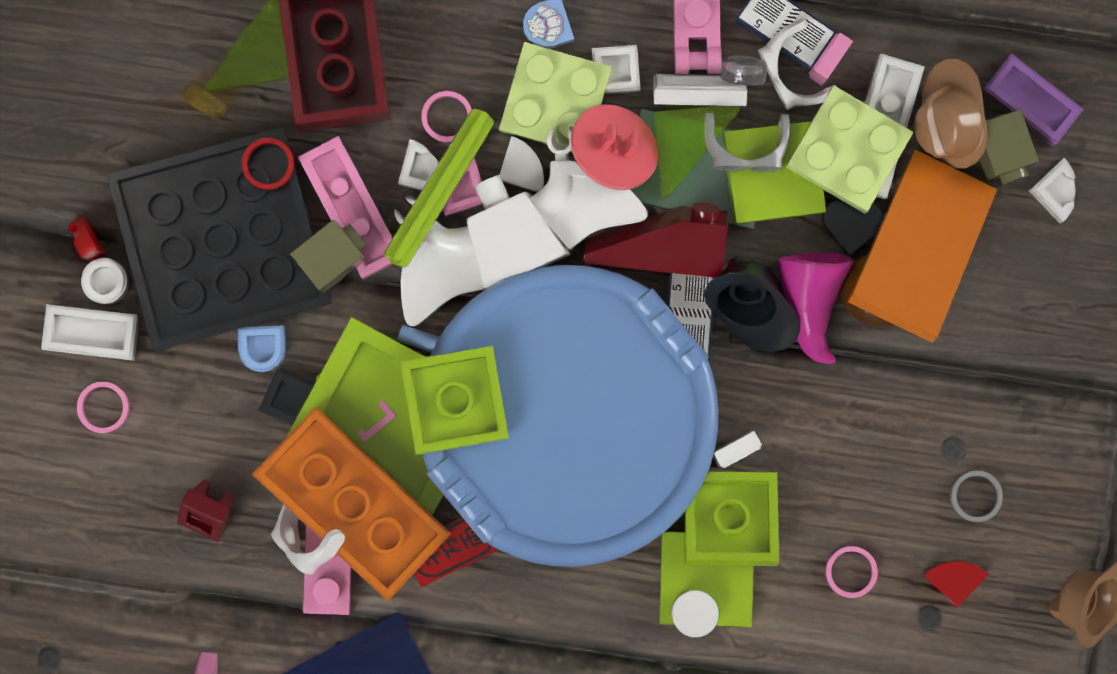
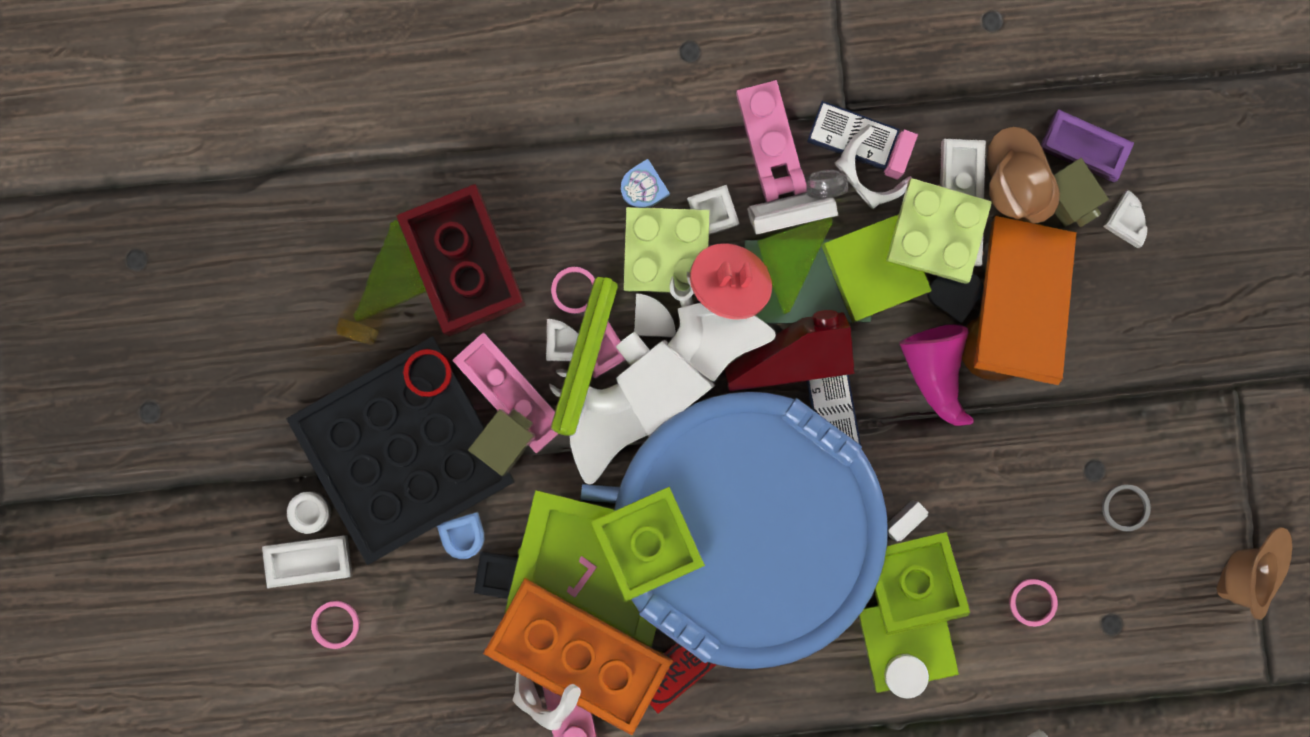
camera: 15 degrees left, 0 degrees up
(85, 239) = (283, 481): red tile -> none
(203, 513) = (449, 698): dark red tile -> none
(726, 162) = (833, 269): light grey cap -> none
(752, 306) = (888, 390): black piece -> none
(955, 579) = (1127, 586): red tile -> none

